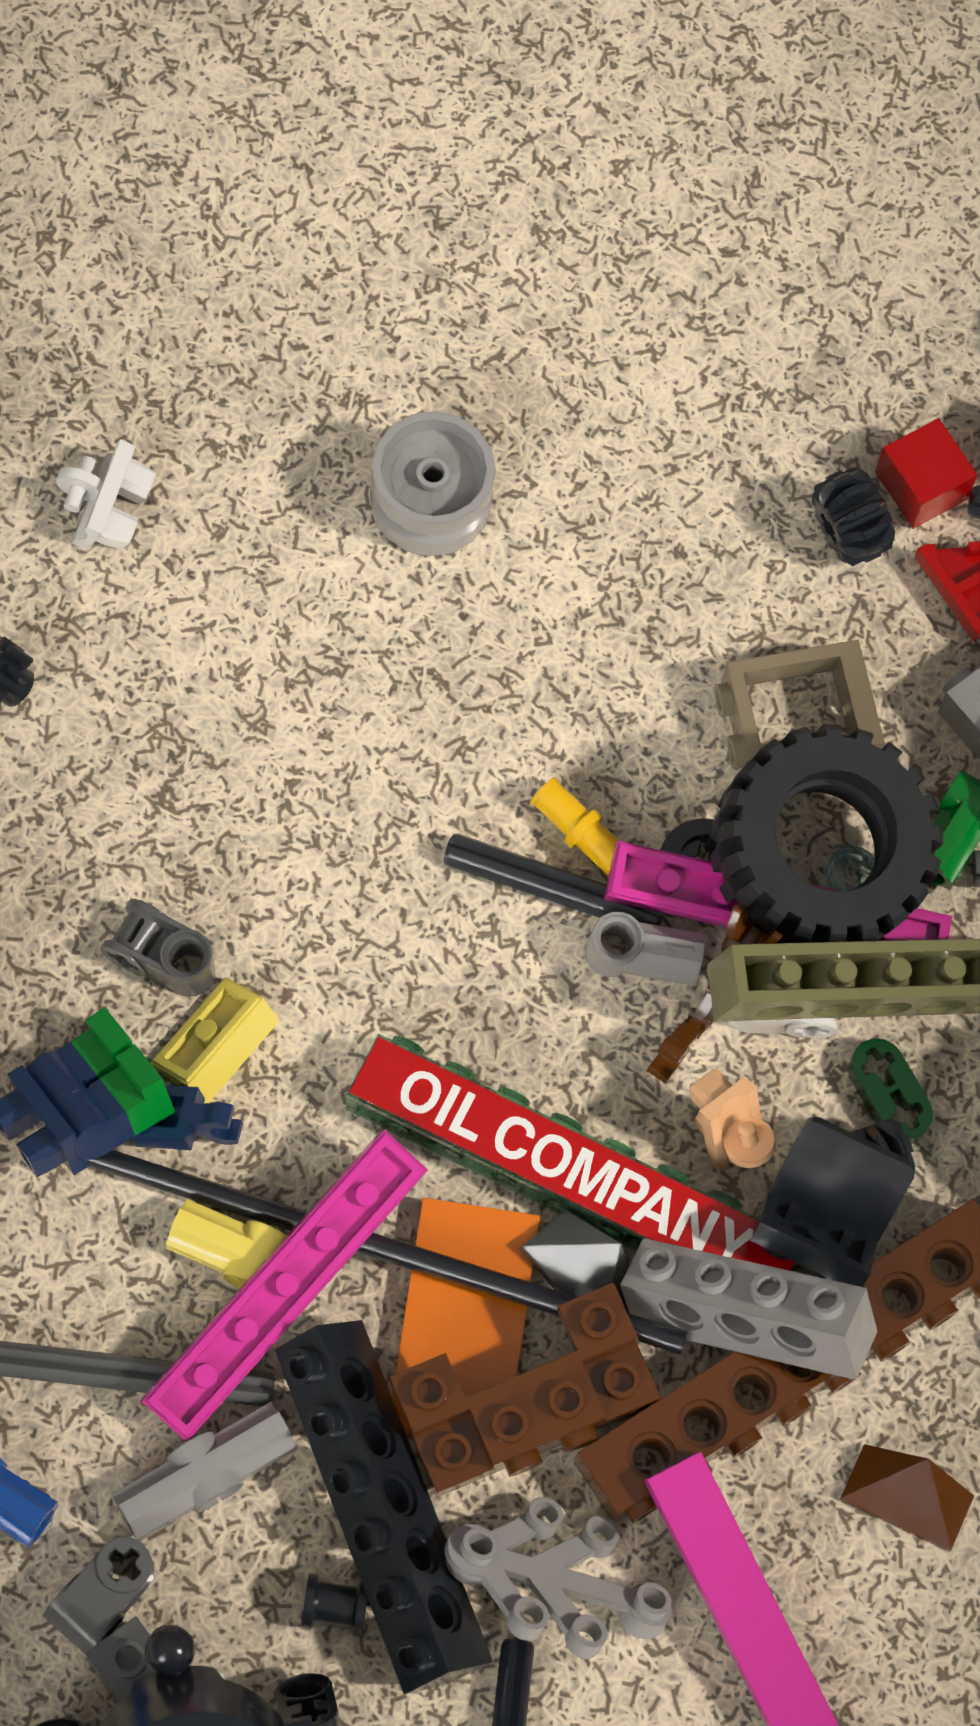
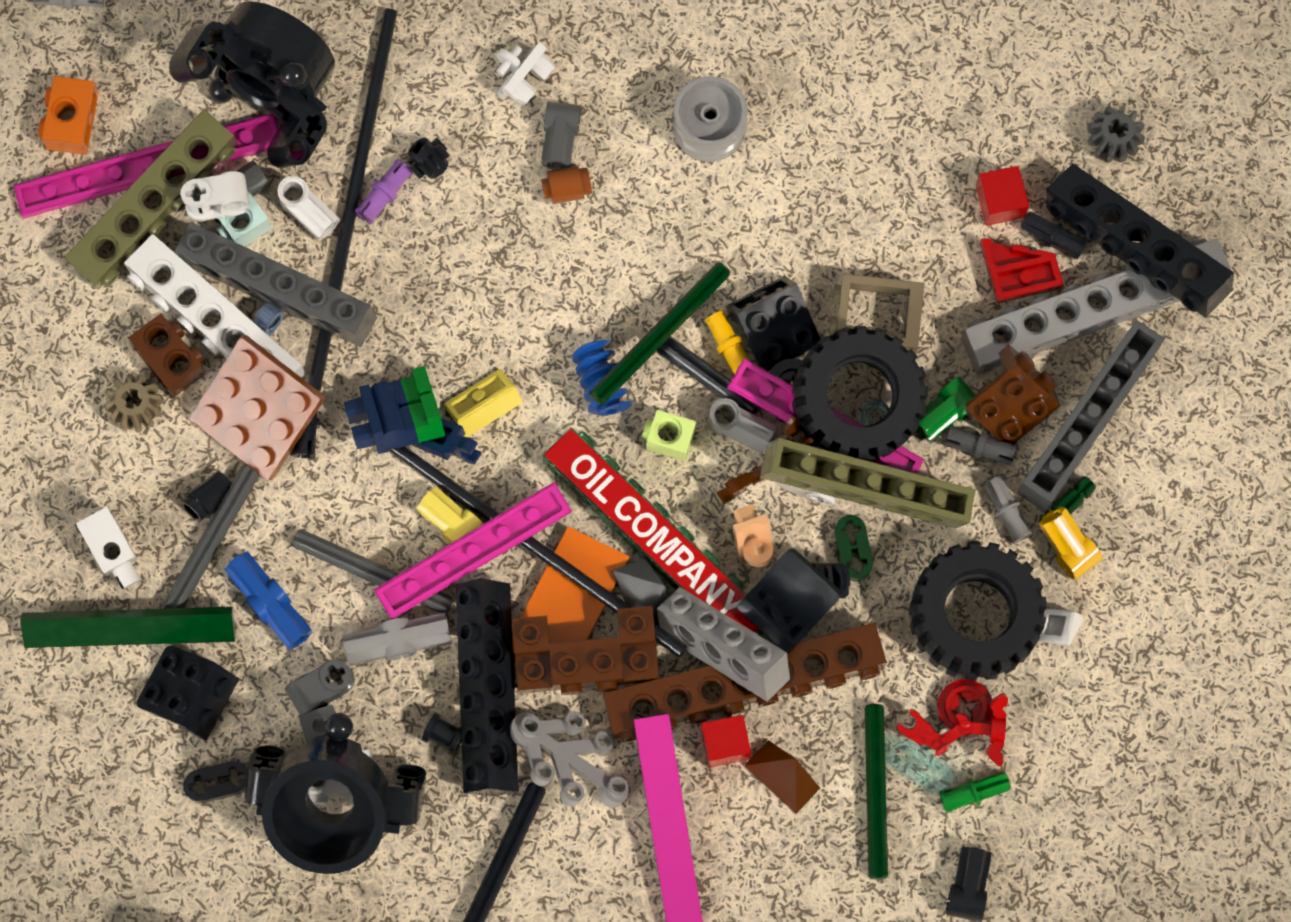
camera: 25 degrees right, 5 degrees up
(152, 943) = (464, 338): dark grey piece -> none
(198, 568) = (560, 128): none -> dark grey piece
(237, 652) = (566, 184): none -> dark orange brick
(395, 945) = (592, 368): none -> blue piece
(469, 843) = (659, 333): none -> dark green axle
(556, 982) = (680, 445): none -> yellowish green brick
(643, 770) = (775, 322): none -> black bracket
(801, 1467) = (725, 741): none -> red piece
(853, 516) = (948, 209): black gear -> none

